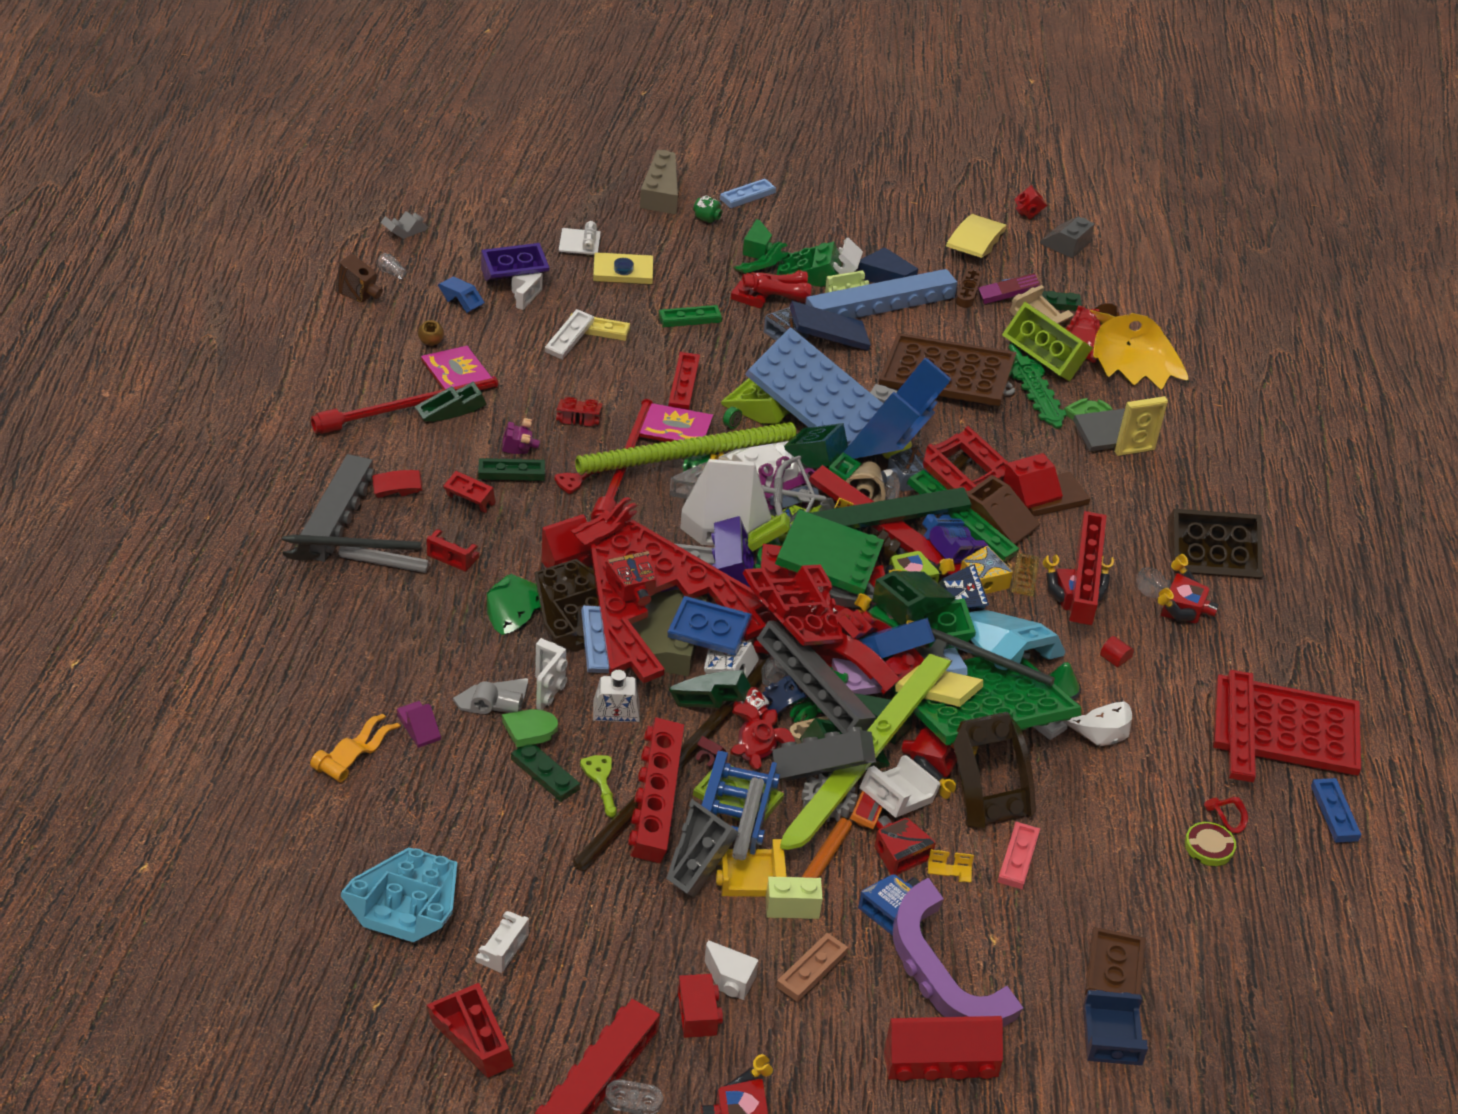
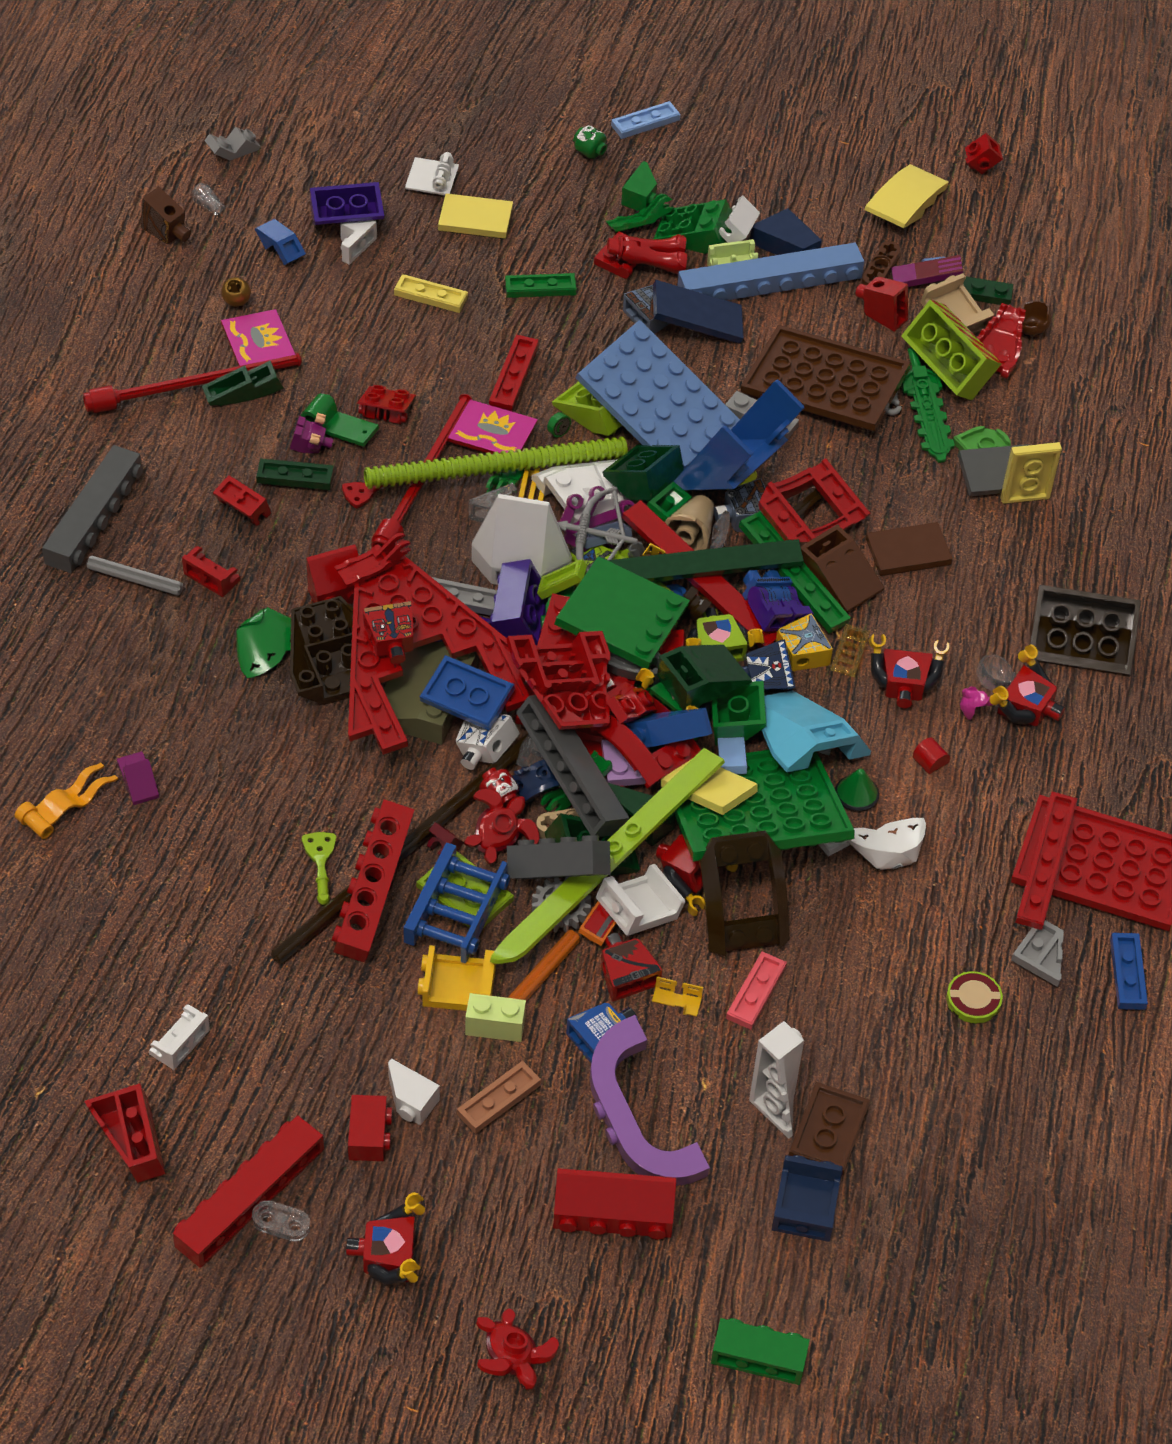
camera: 10 degrees right, 10 degrees up
(304, 541) = (48, 553): pearl dark grey piece -> none
(400, 481) = (165, 481): red slope -> none
(404, 894) = (87, 973): medium azure wedge -> none
(496, 696) = (224, 752): light grey panel -> none
(530, 726) = (255, 792): bright green tile -> none
(543, 429) = (338, 423): none -> green door
(545, 771) = (262, 845): dark green plate -> none
(549, 671) = (287, 734): white bracket -> none
(569, 334) = (394, 302): white tile -> none
(594, 640) = (341, 694): light blue tile -> none
(616, 699) = (354, 769): white torso -> none
(623, 266) = (474, 215): clear blue tile -> none
(660, 185) = (541, 103): dark tan wedge -> none
(700, 848) = (401, 956): dark grey wedge -> none
(711, 689) = (457, 768): dark green slope -> none
(748, 818) = (461, 925): light grey axle -> none
(944, 639) = (726, 729): pearl dark grey piece -> none
(981, 310) = (885, 301): none -> red torso
(1033, 480) = (887, 534): red slope -> none
(1064, 922) = (776, 1075): none -> white wedge
(1070, 236) = (1021, 203): dark grey slope -> none
(1088, 568) = (915, 654): red brick -> none
(1140, 603) = (971, 699): none -> dark pink piece
(1146, 356) = (1072, 375): yellow piece -> none
(1214, 804) = (990, 950): red piece -> none
(1260, 801) = (1042, 952): none -> light grey wing

